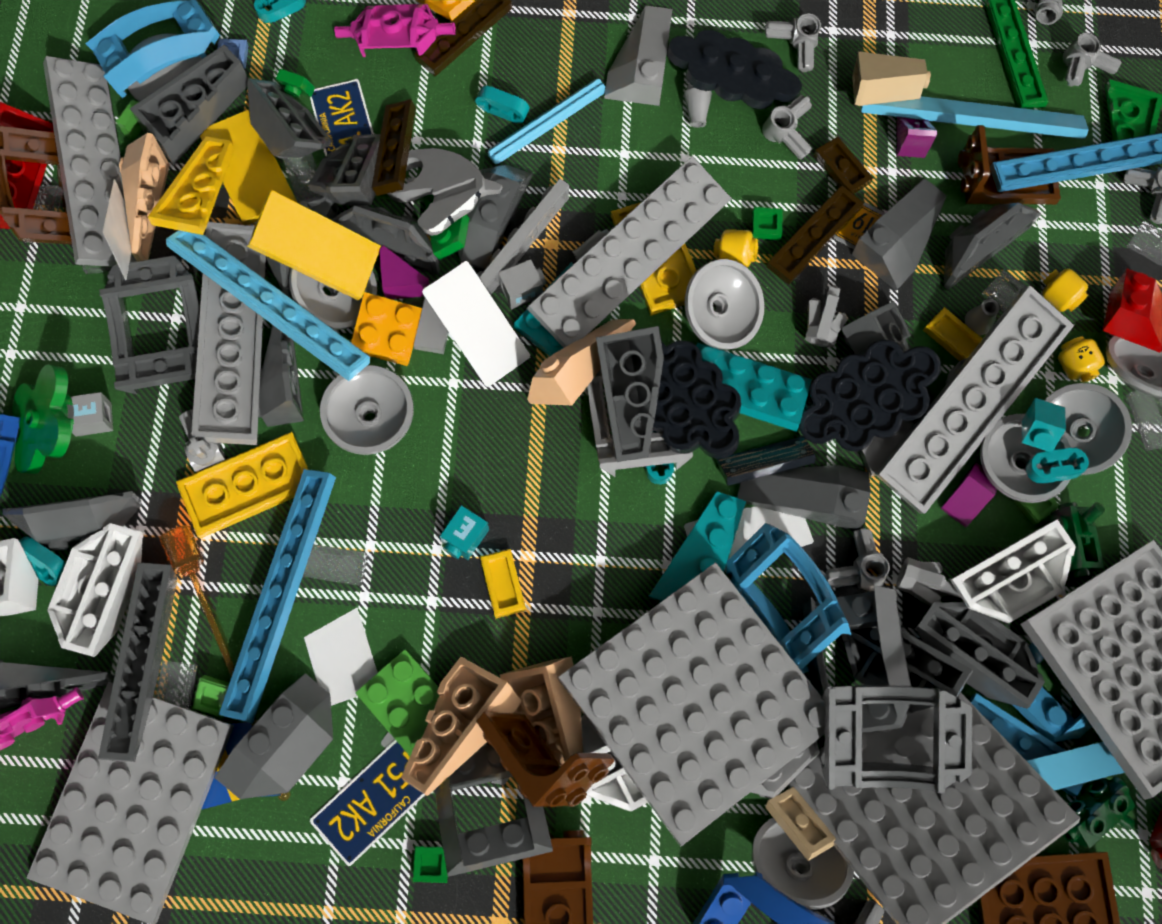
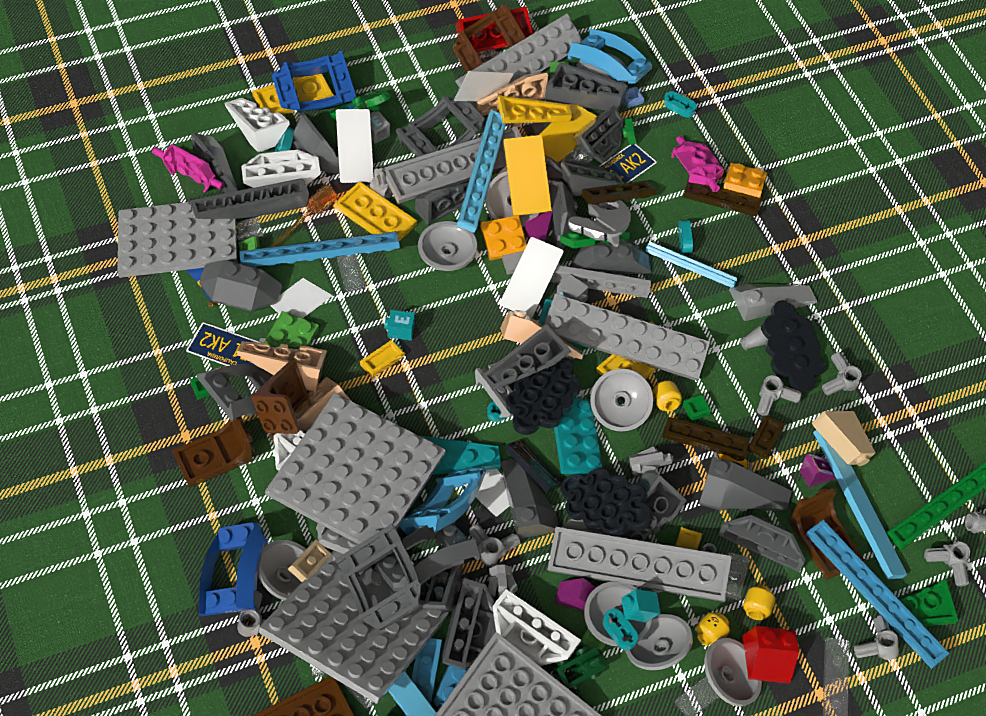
camera: 65 degrees right, 15 degrees down
(116, 459) = (354, 145): none -> white sticker

